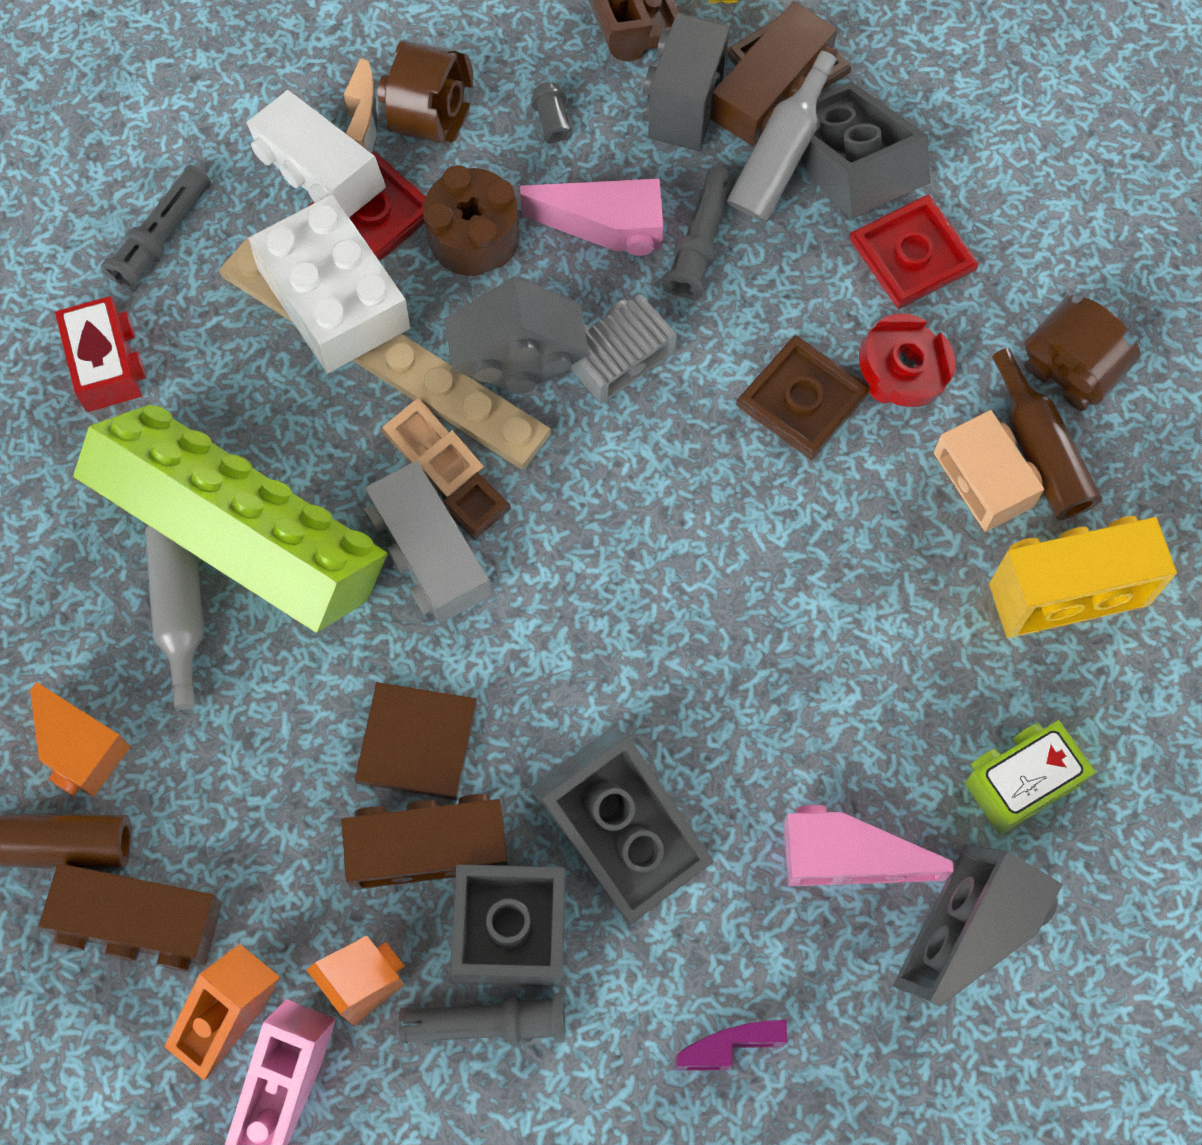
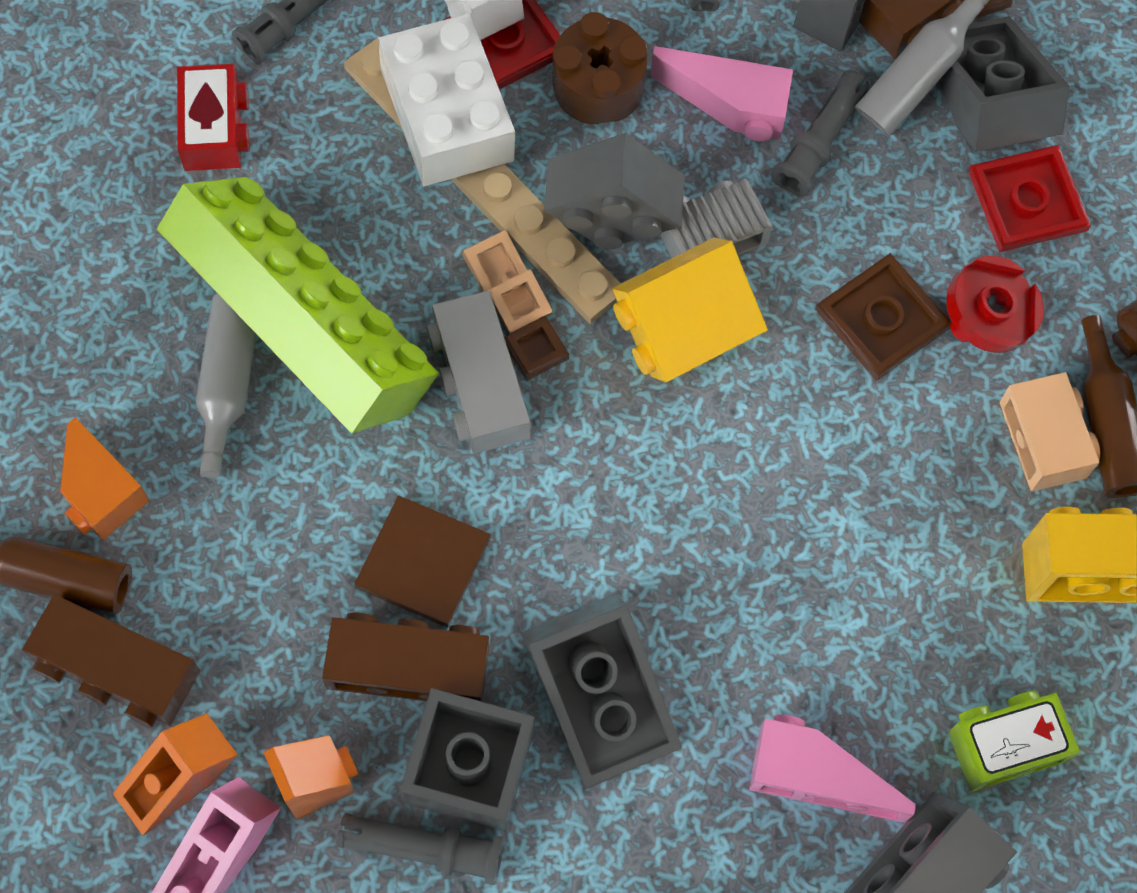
camera: 10 degrees right, 0 degrees up
(616, 434) = (688, 309): none -> yellow brick

